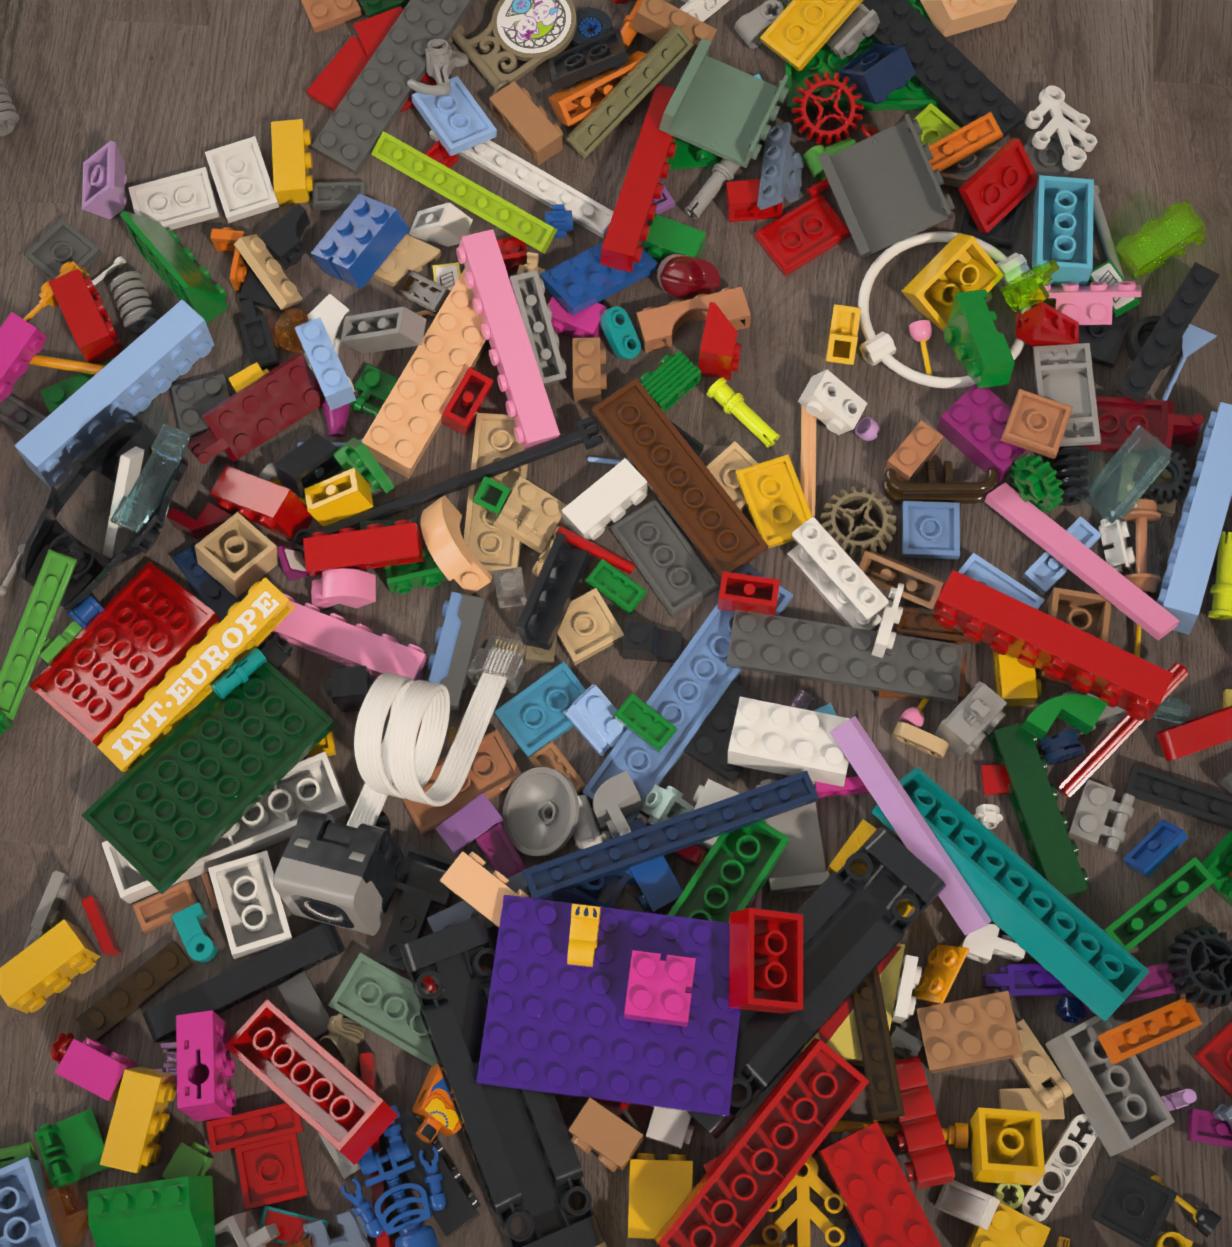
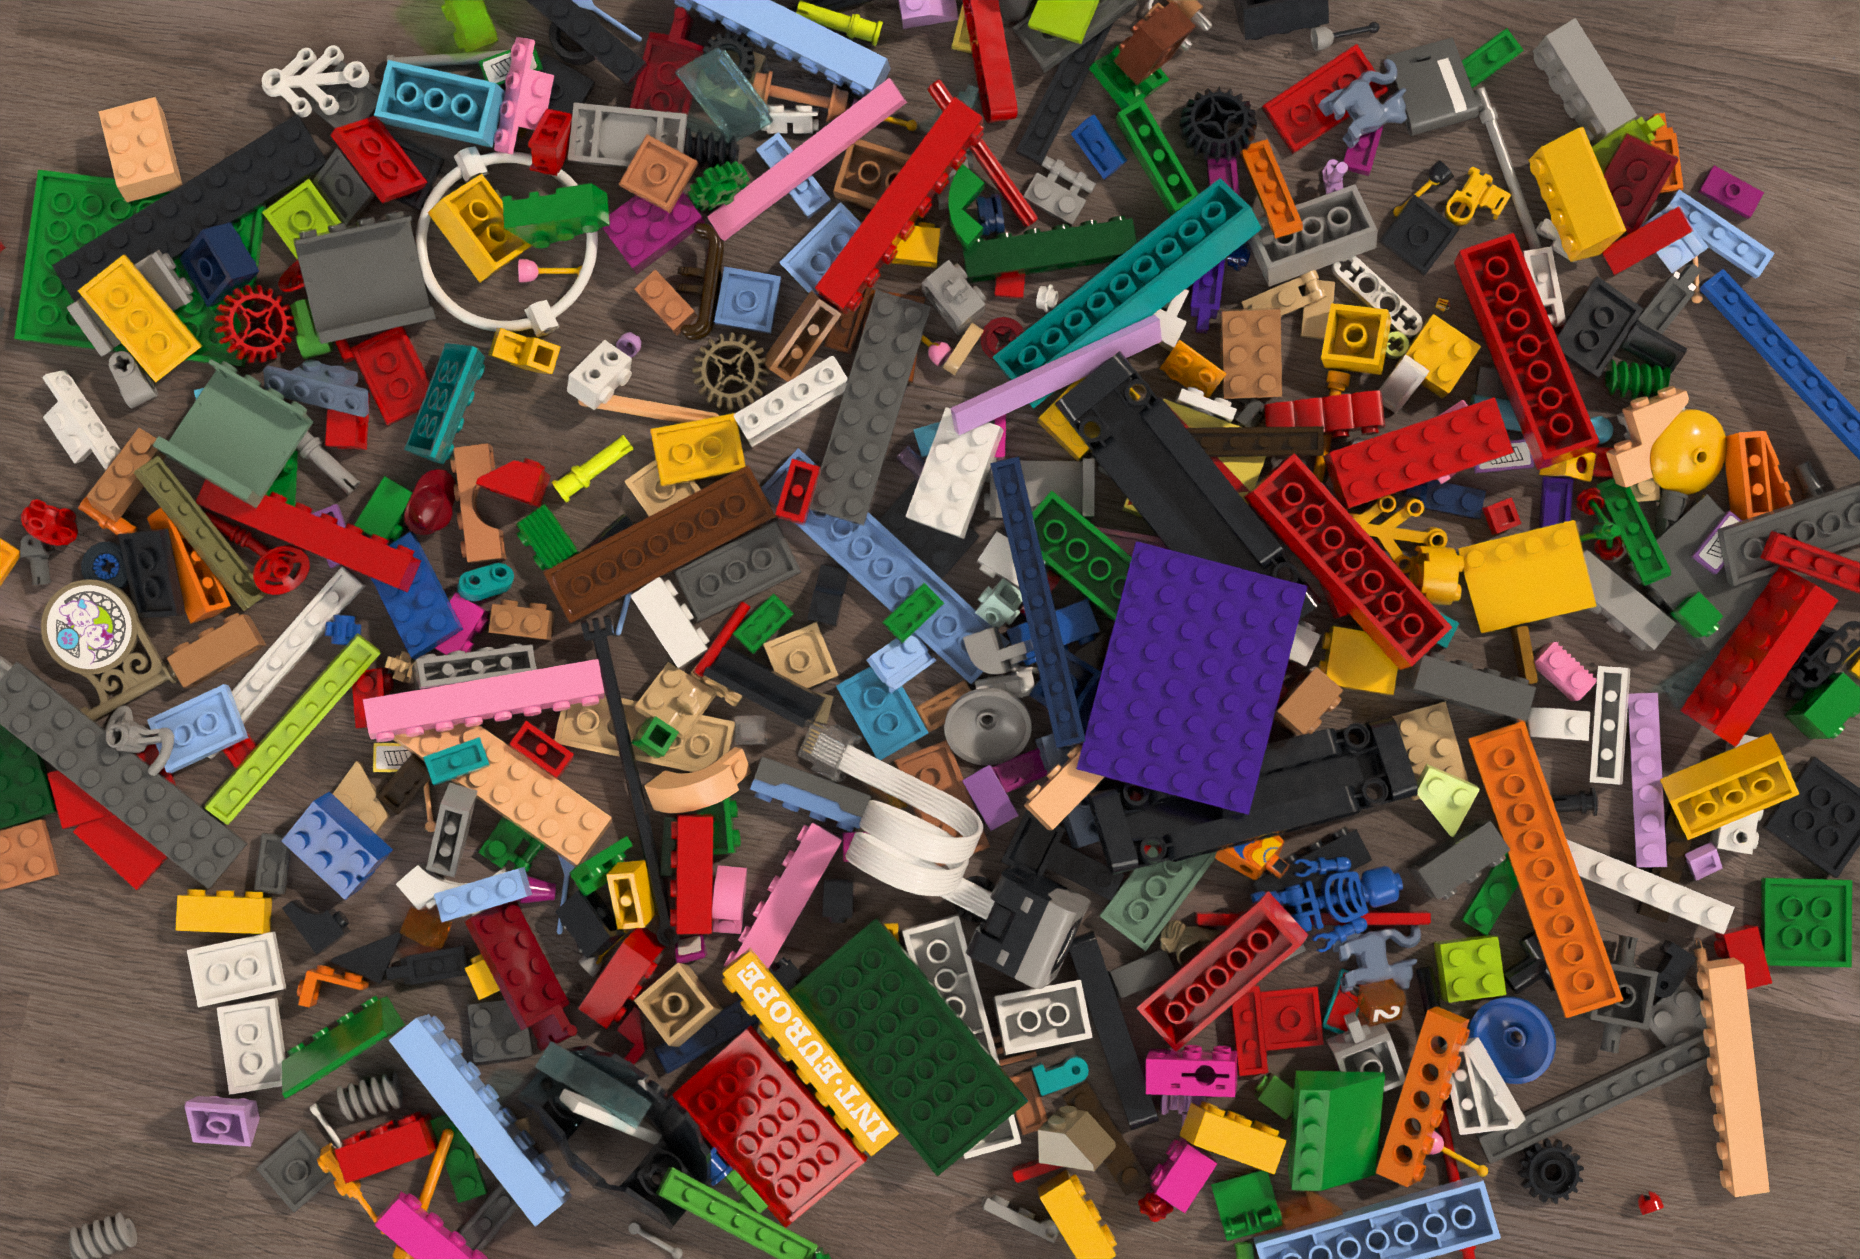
camera: 85 degrees left, 15 degrees up
(126, 950) = (1073, 1140): none -> dark tan slope
(238, 673) = (812, 1010): teal pin -> none
(268, 271) = (358, 947): tan plate -> none
(441, 225) = (327, 757): white slope -> none
(446, 320) = (456, 761): none -> teal plate
(583, 935) = (1130, 697): yellow leg -> none
(612, 159) = (275, 559): none -> red dish
(659, 988) = (1191, 632): dark pink piece -> none
(766, 961) = (1176, 530): red brick -> none
(781, 275) = (445, 402): none -> teal slope
(892, 614) = (861, 365): white hinge -> none
(950, 776) = (1000, 326): none -> dark red gear
(964, 142) = (320, 187): orange tile -> none
(1029, 286) = (502, 153): clear neon green bracket -> none

